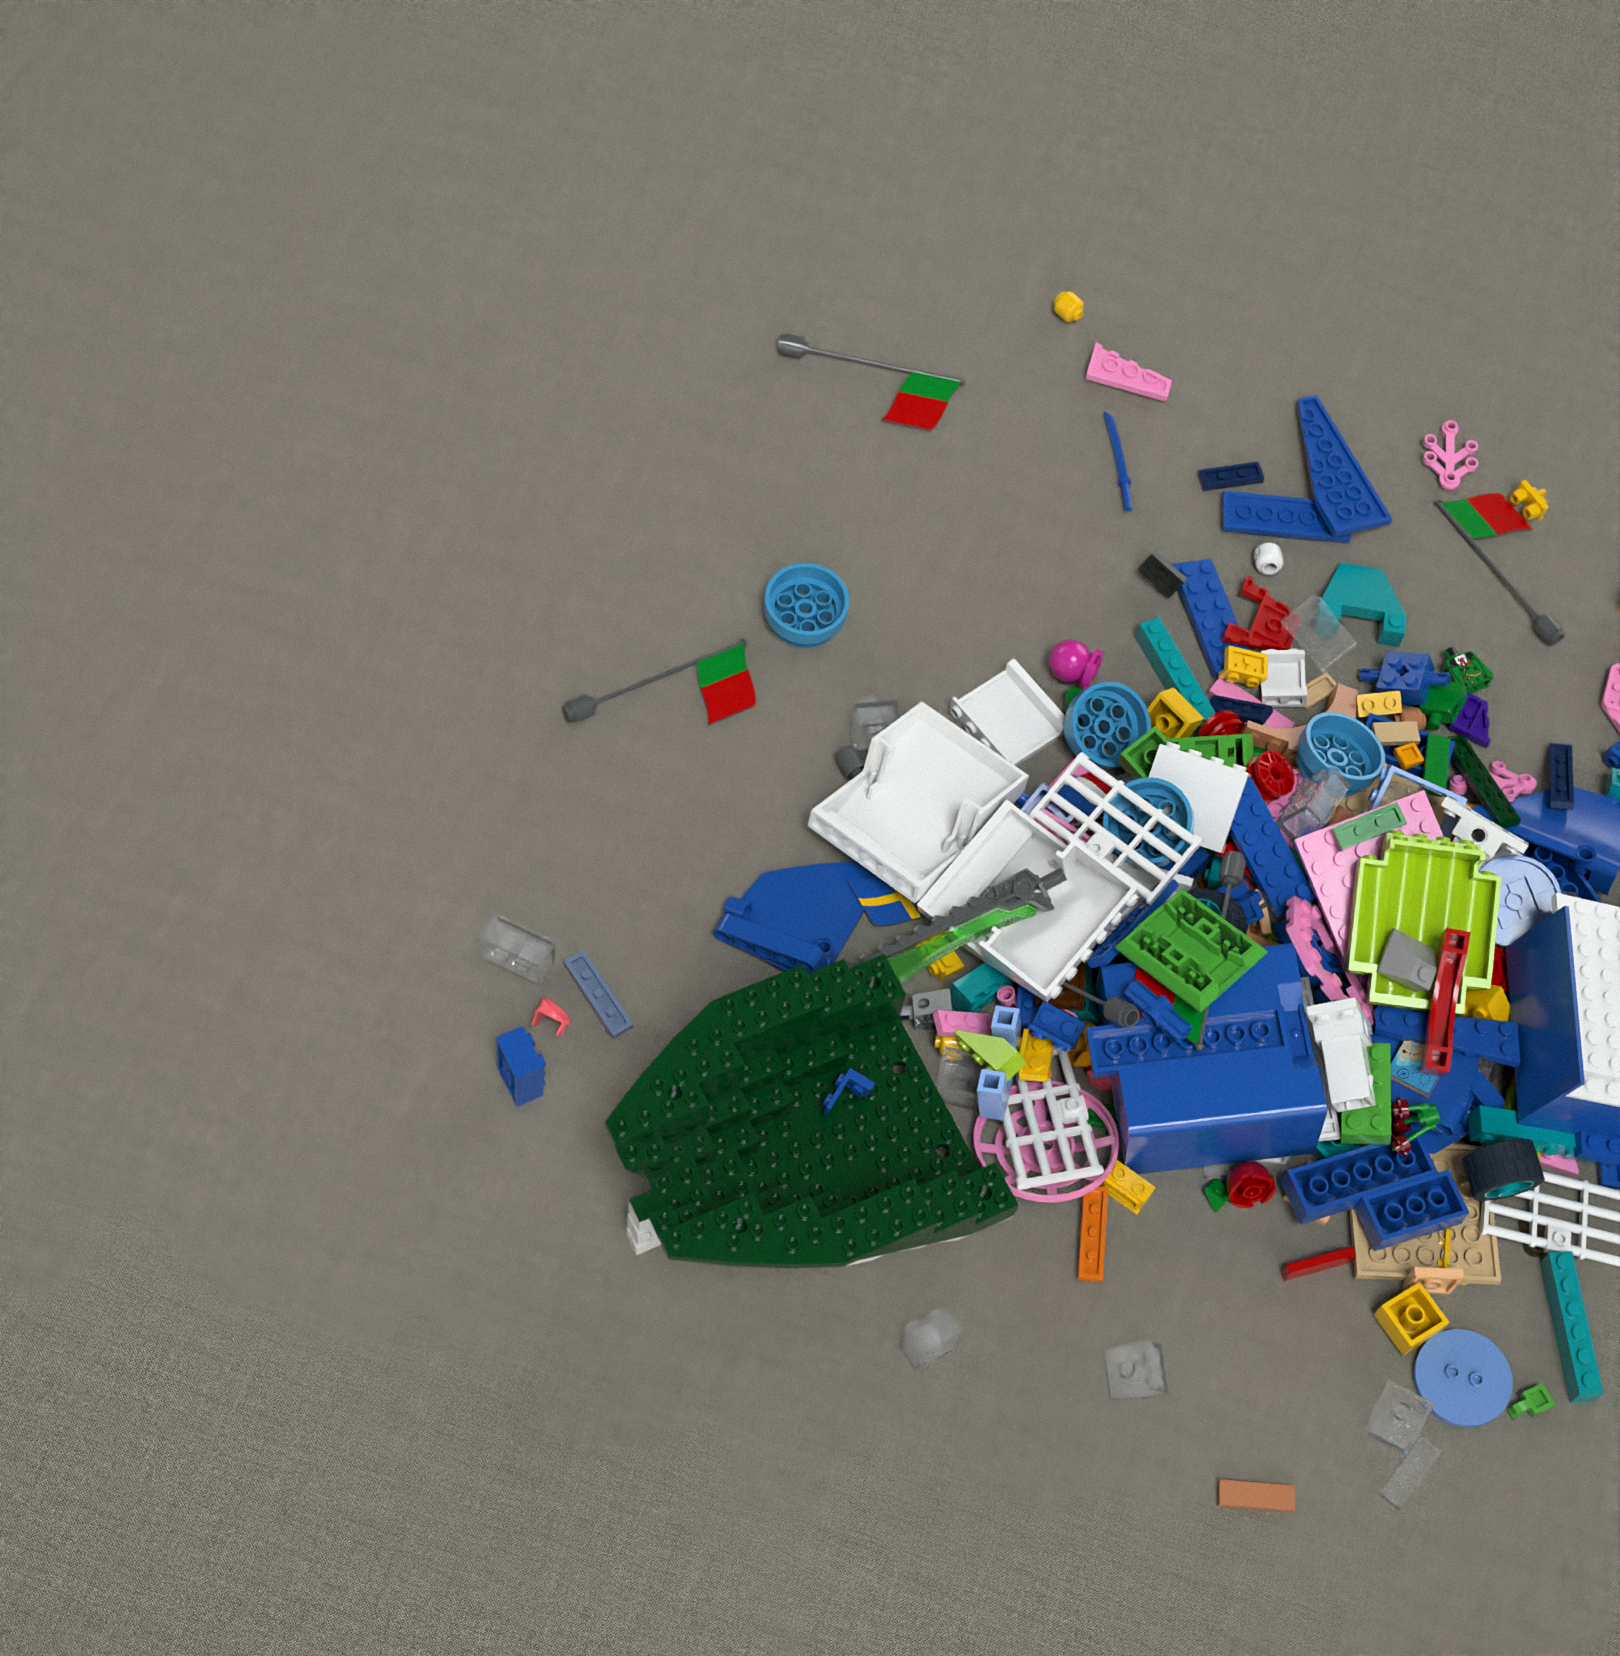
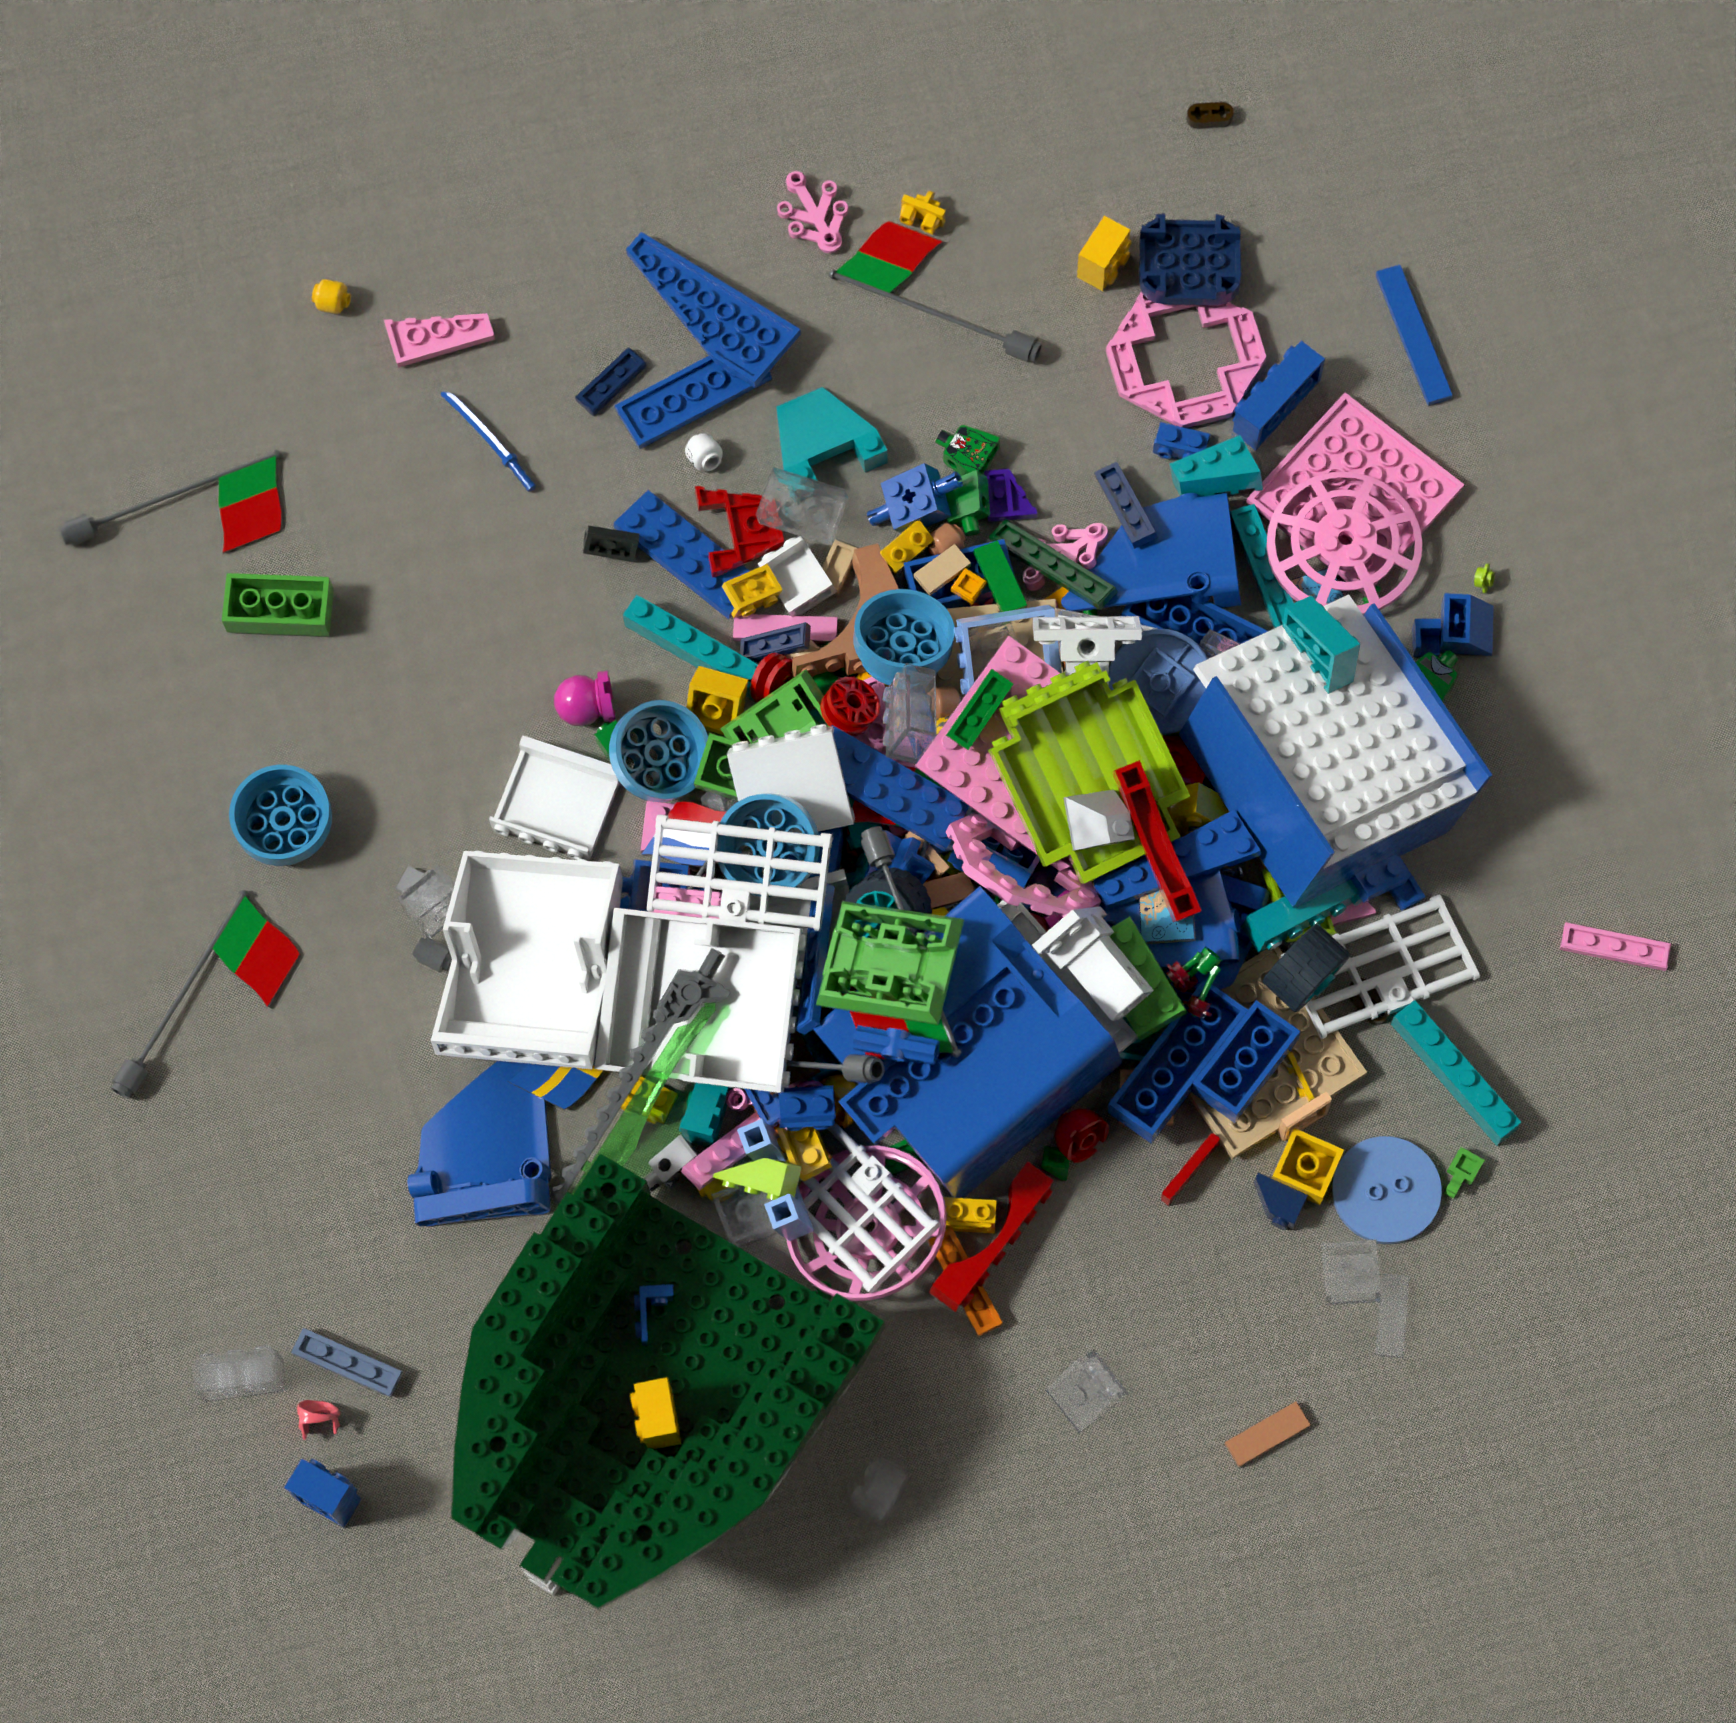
camera: 20 degrees left, 10 degrees up
(802, 1163) = (657, 1414): none -> yellow brick
(898, 472) = (277, 604): none -> bright green brick
(1091, 1225) = (960, 1278): none -> red arch
(1373, 1331) = (1279, 1201): none -> dark blue slope

